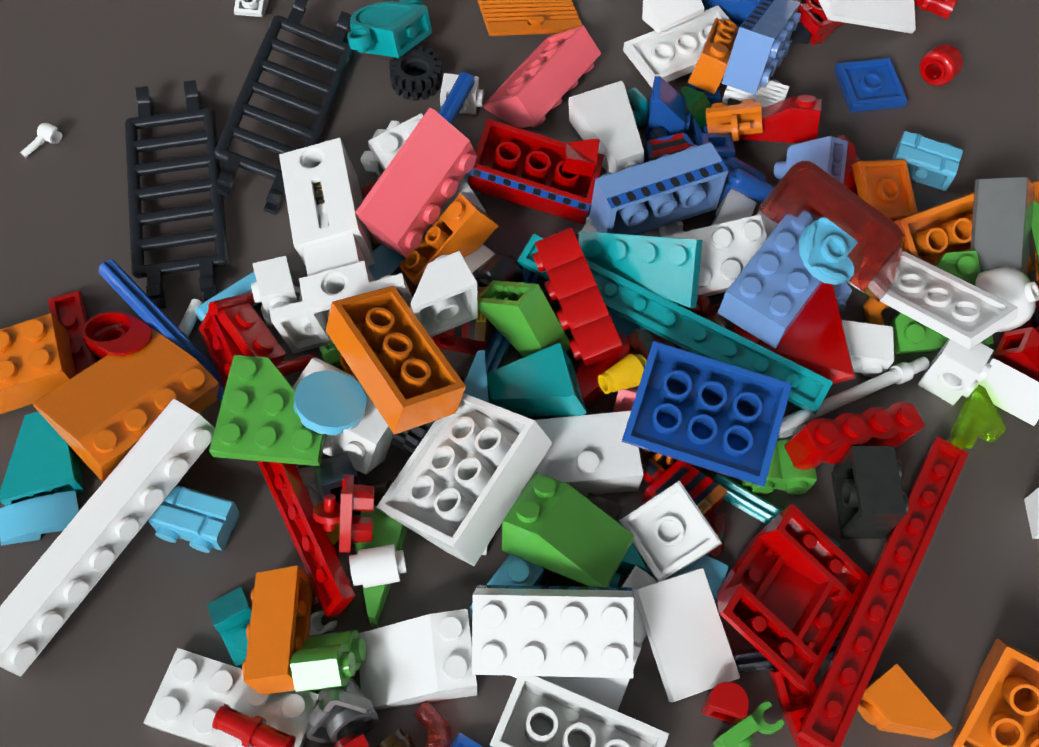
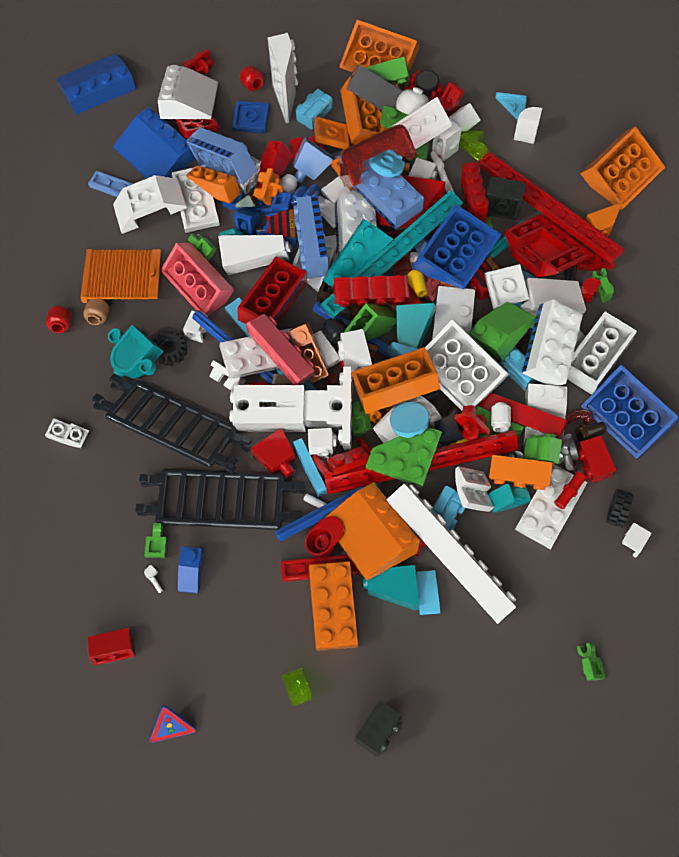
camera: 70 degrees left, 5 degrees up
(57, 176) = (190, 569): none -> blue slope
(92, 128) = (156, 544): none -> bright green plate
(232, 550) = (473, 488): none -> white slope
(258, 238) = (275, 454): none -> red torso
(396, 618) = (528, 416): none -> red tile
(581, 157) = (278, 266): red slope -> none
(601, 73) = (203, 245): none -> bright green plate
(755, 153) = (289, 183): none -> white brick
(954, 82) = (283, 71): none -> white slope

